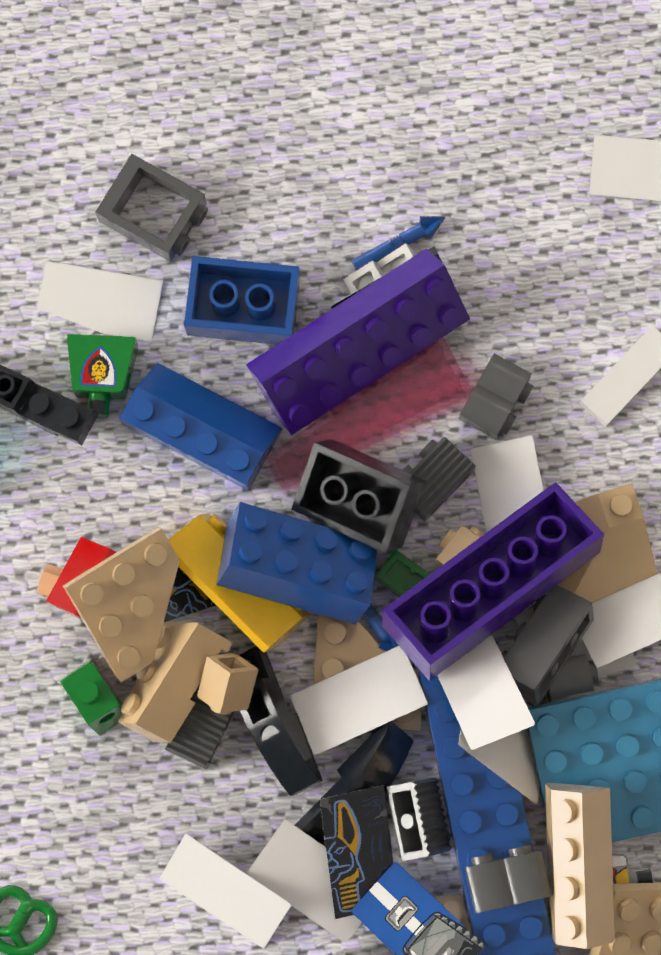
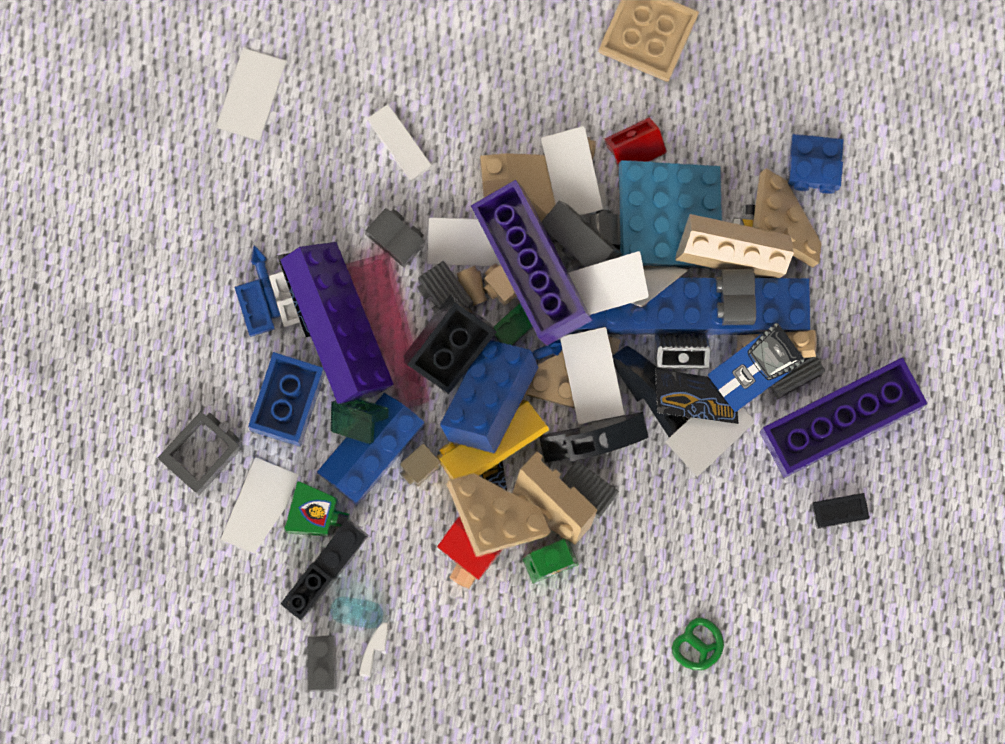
camera: 85 degrees left, 0 degrees up
(190, 492) = (419, 465): none -> dark tan brick
(225, 891) = (705, 495): white sticker -> none
(227, 683) = (565, 459): tan brick -> none
(234, 396) = (357, 419): none -> clear green panel
(359, 235) = (254, 308): none -> blue plate
(452, 513) = (472, 284): none -> tan cone

